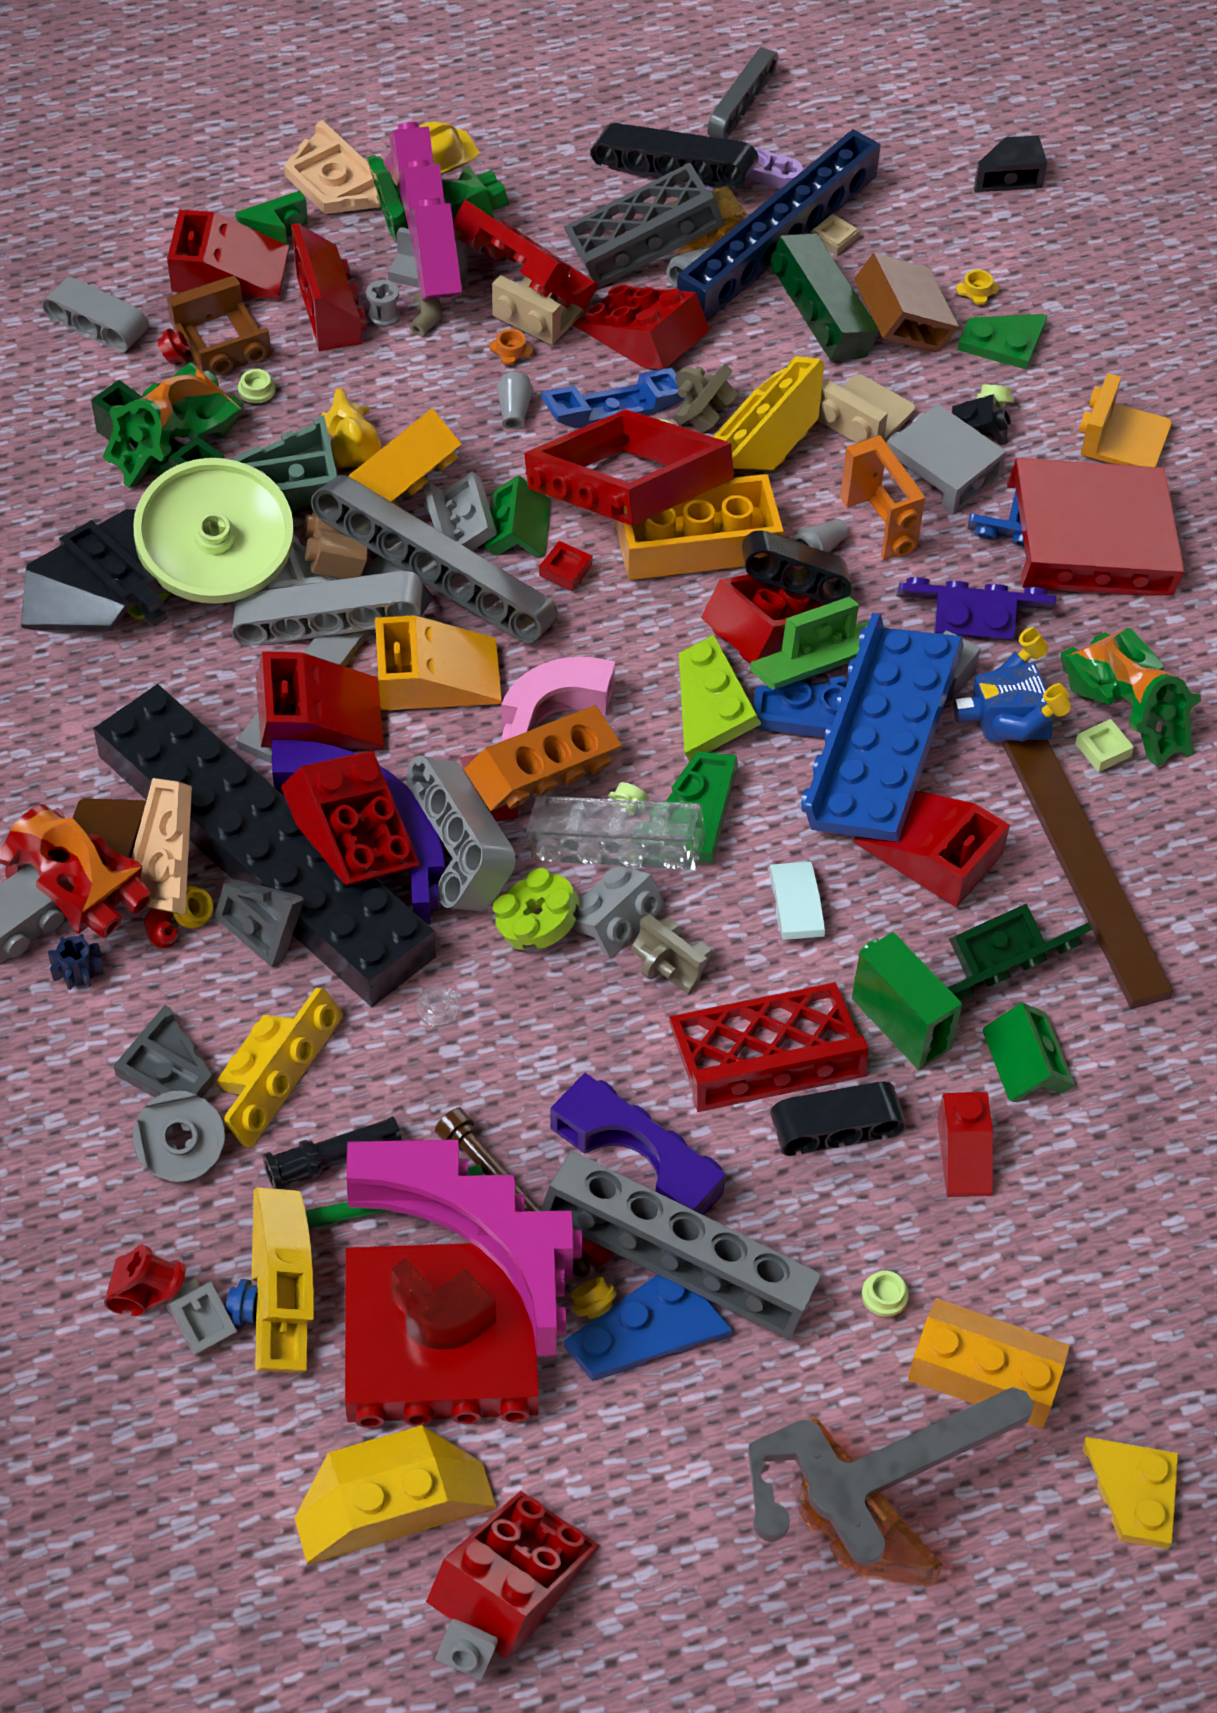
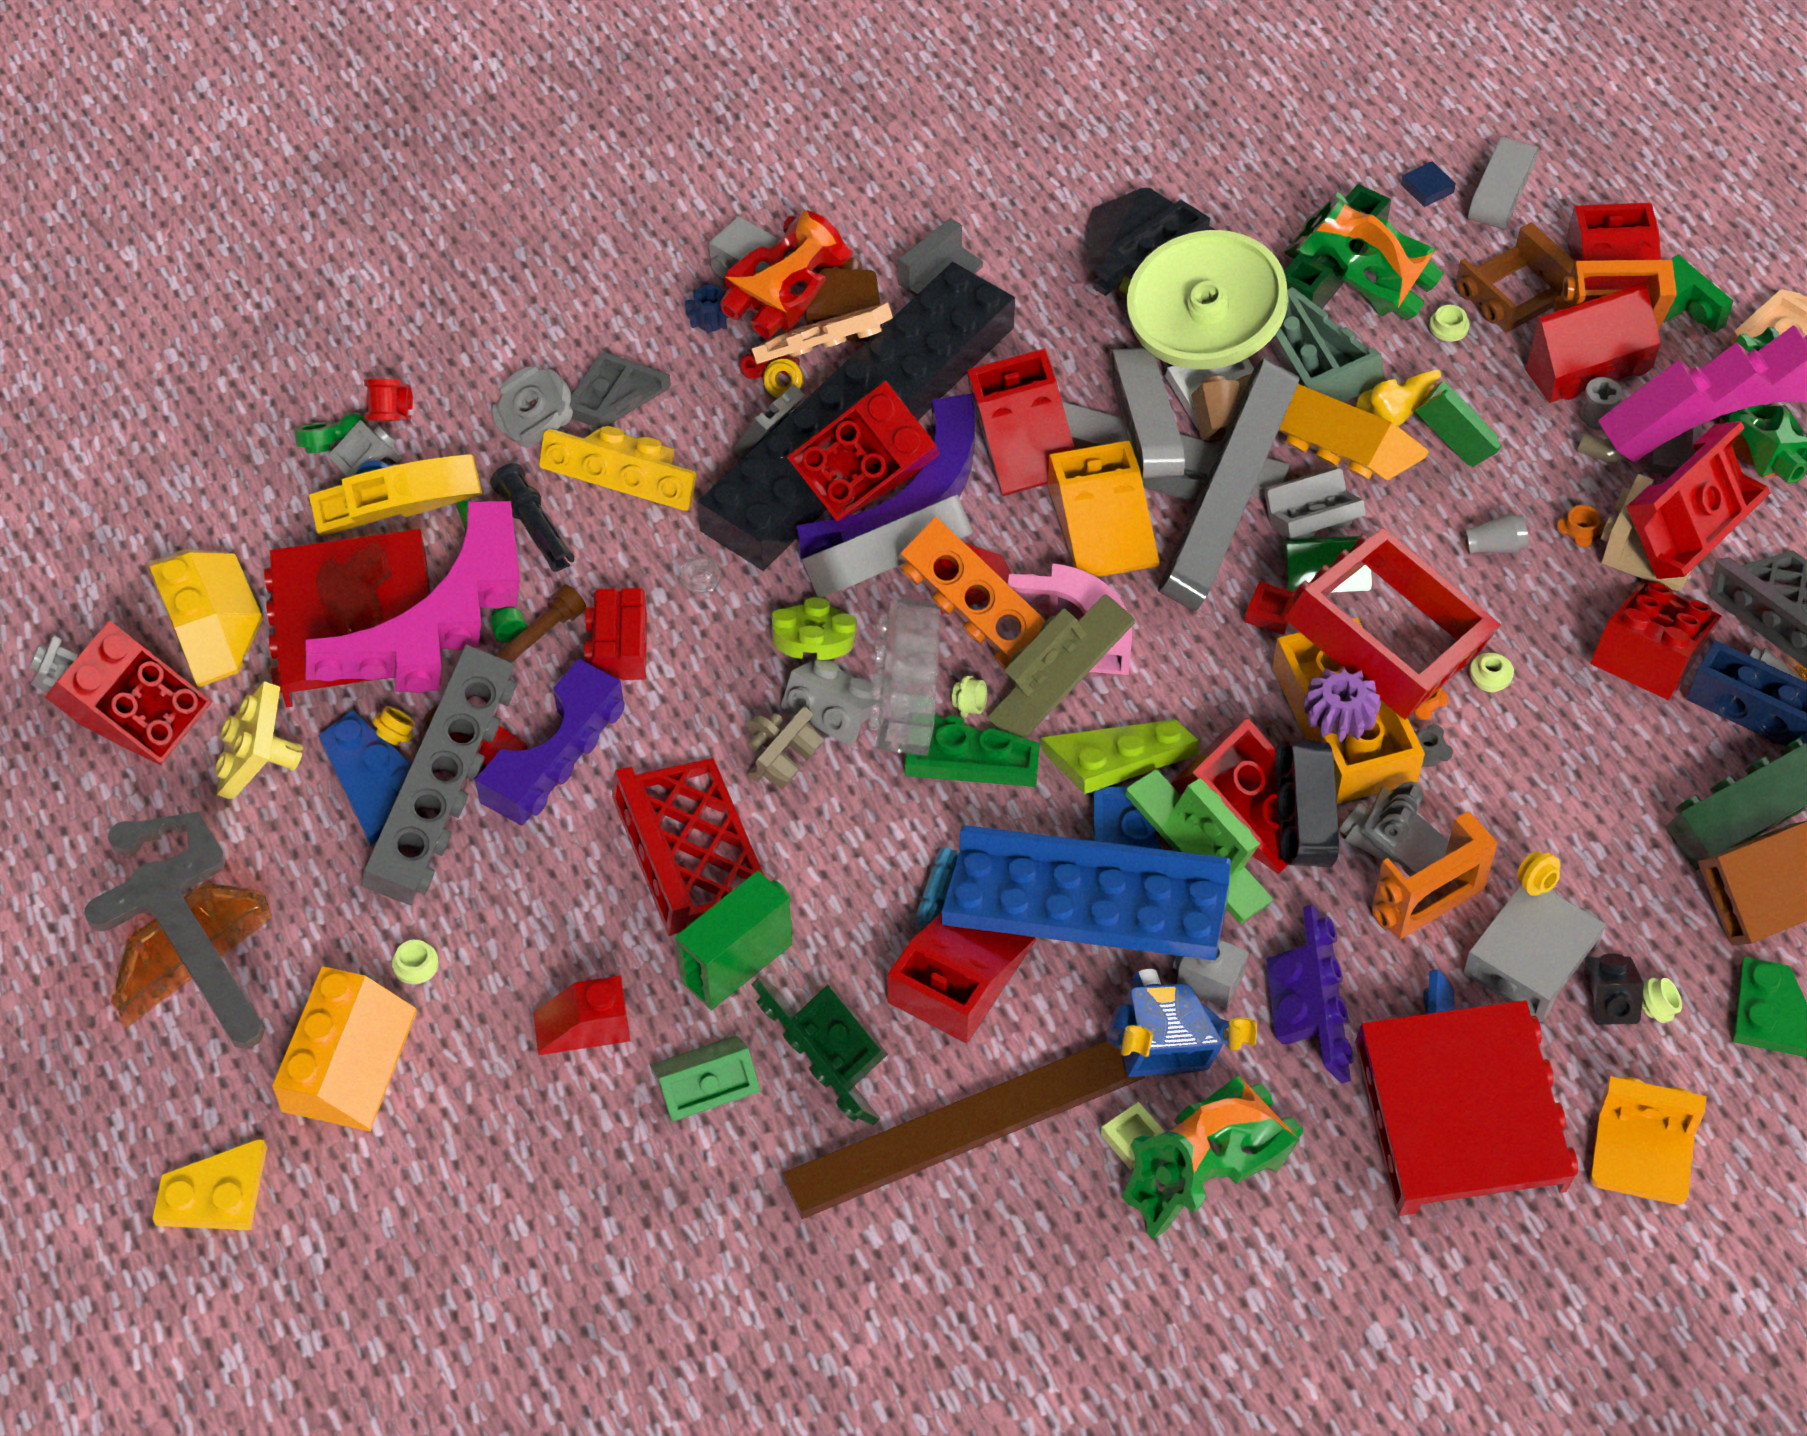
camera: 85 degrees right, 0 degrees up
(68, 758) = (933, 255): none -> dark grey panel
(73, 370) = (1428, 184): none -> dark blue tile
(162, 1361) = (318, 436): none -> green plate
(174, 346) = (1474, 241): red plate -> none
(282, 268) = (1659, 283): none -> orange panel
(395, 394) = (1458, 425): none -> green panel
(508, 1081) = (618, 633): none -> red brick
(609, 1431) = (252, 743): none -> light yellow plate
(626, 715) = (1057, 663): none -> olive bracket
(651, 395) = (1522, 627): blue slope -> none
(701, 391) = (1573, 712): dark tan hips -> none
(723, 508) = (1342, 703): none -> medium lavender gear
(775, 415) = (1516, 760): yellow wedge -> none
(797, 900) = (868, 849): light aqua slope -> none
(830, 505) = (1401, 832): none -> dark grey hinge
(836, 1117) = (605, 905): black beam -> none
(839, 853) = (937, 886): none -> dark azure axle
(863, 409) = (1595, 866): tan bracket -> none
(897, 425) = (1539, 873): none -> yellow plate

